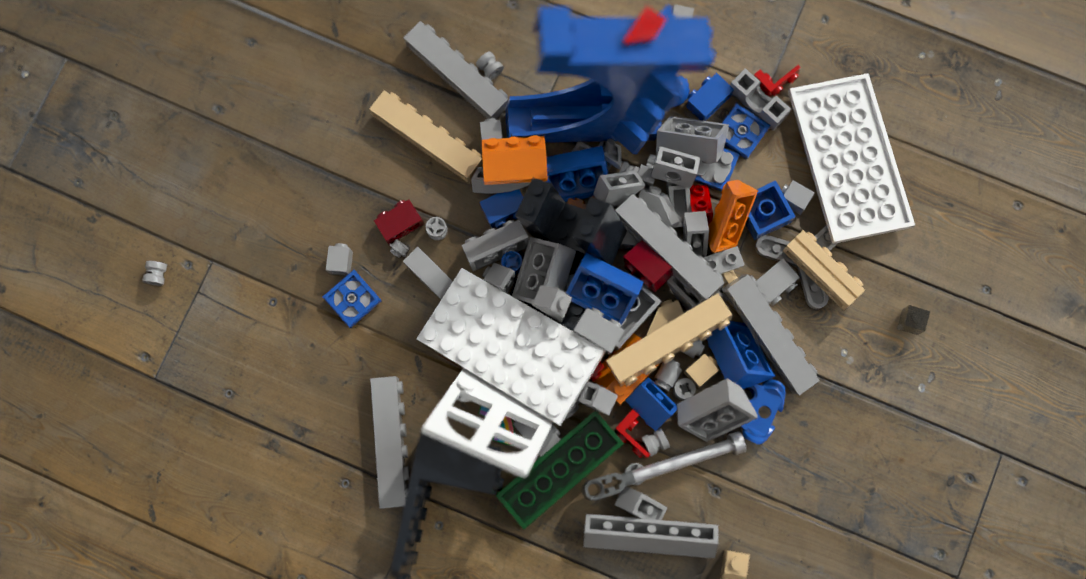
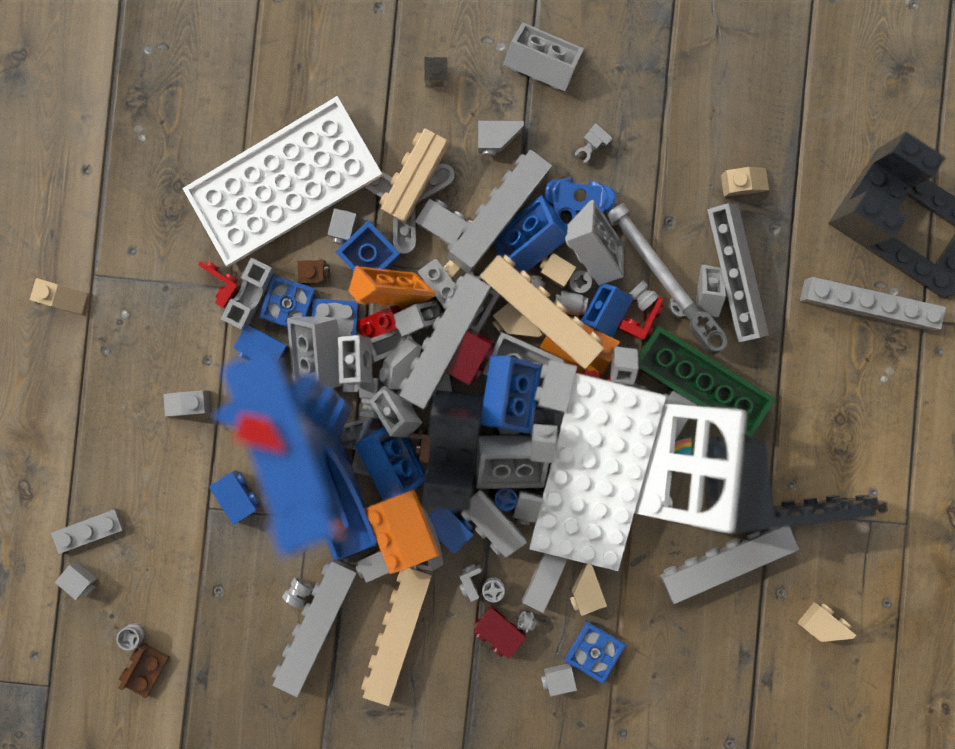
camera: 115 degrees left, 10 degrees up
(303, 510) = (823, 626): none -> tan slope
(406, 308) = (587, 592): none -> tan slope
(448, 208) = (468, 587): none -> light grey bracket
(763, 161) = (313, 271): none -> reddish brown bracket
(811, 445) = (594, 139): none -> light grey piece
(840, 356) = (497, 135): none -> light grey slope
(902, 421) = (543, 56): none -> light grey slope

